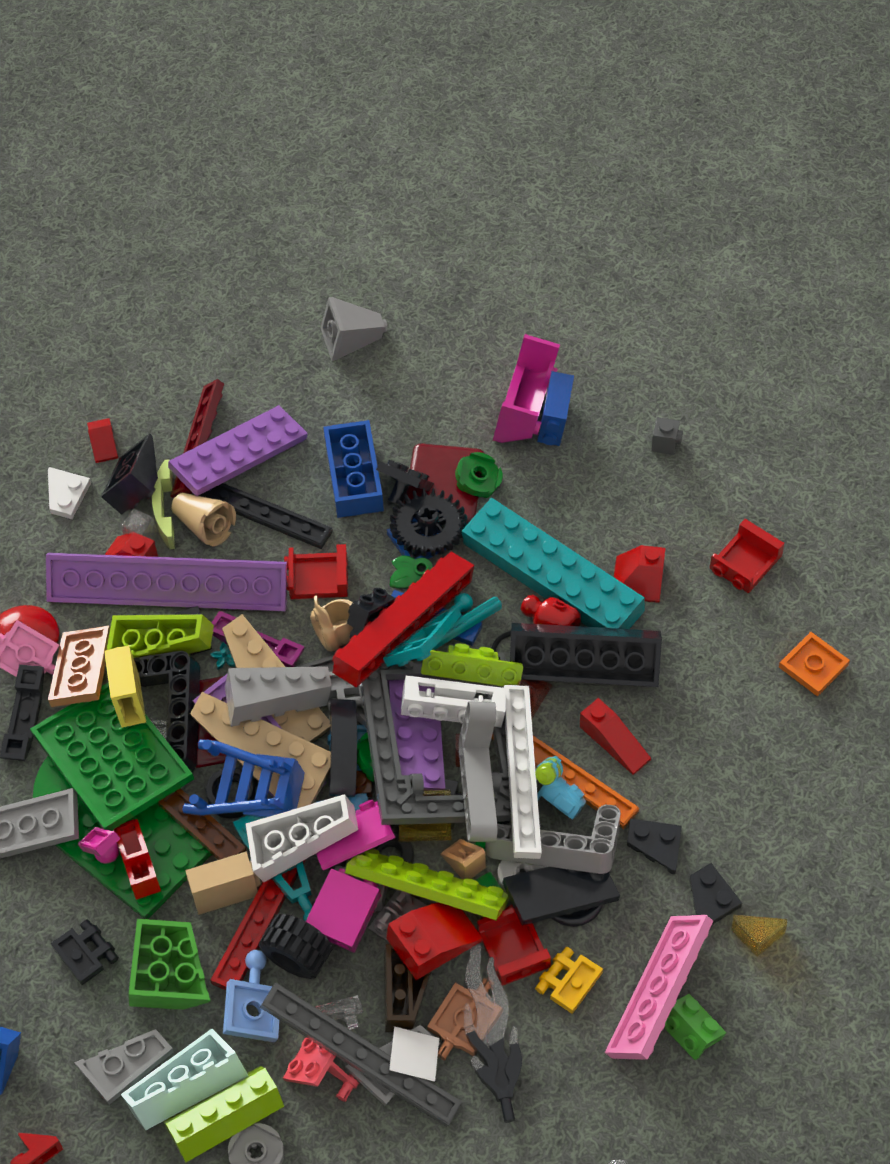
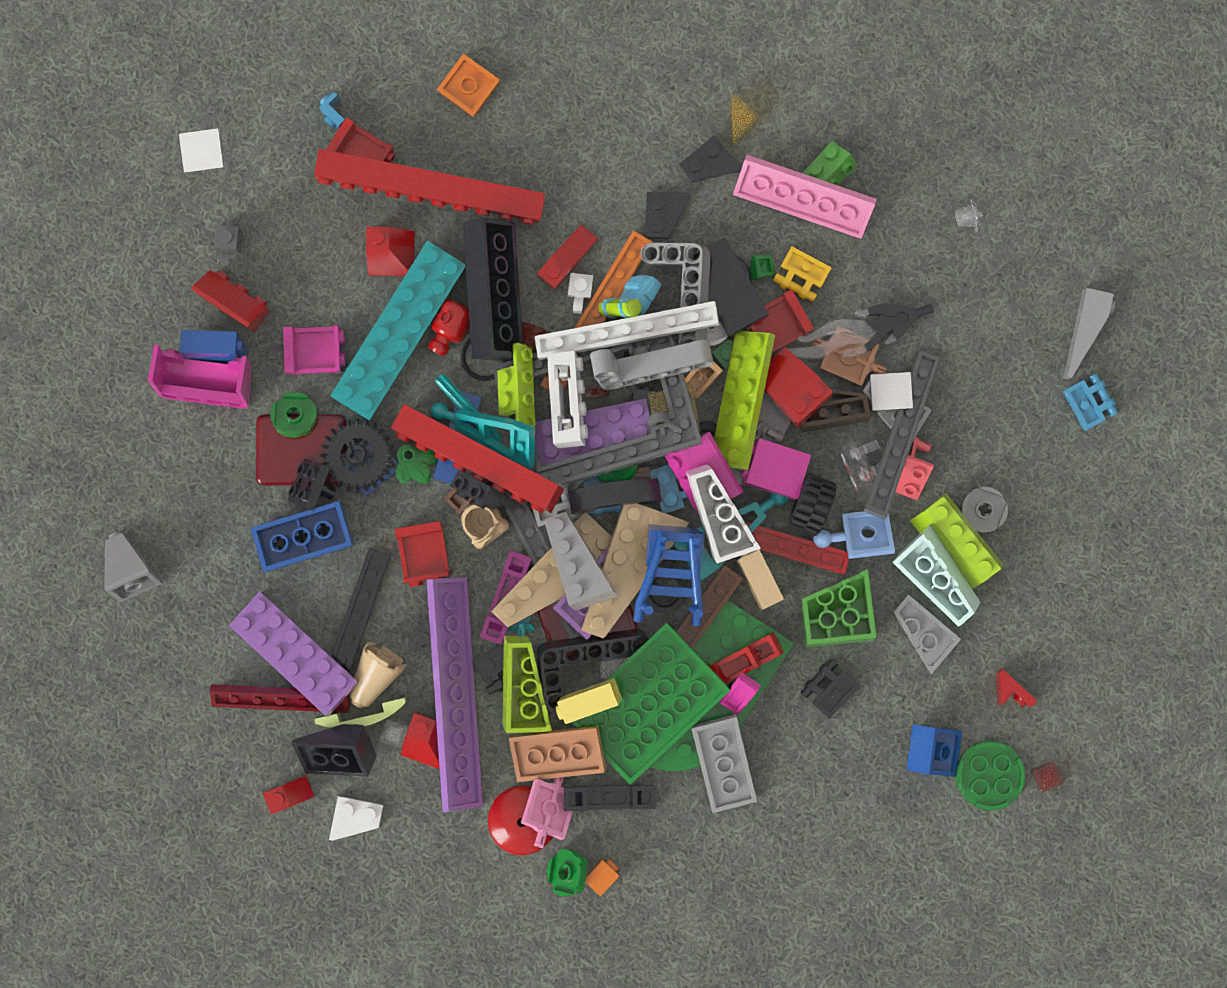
camera: 105 degrees left, 30 degrees up
(544, 496) = (313, 350): none -> dark pink panel
(579, 749) = (580, 288): none -> white plate
(583, 938) = (762, 267): none -> green slope
(601, 429) = (232, 299): none -> red slope
(702, 611) = (429, 186): none -> red brick
(760, 428) = (201, 150): none -> white sticker
(795, 533) = (332, 117): none -> dark azure bracket

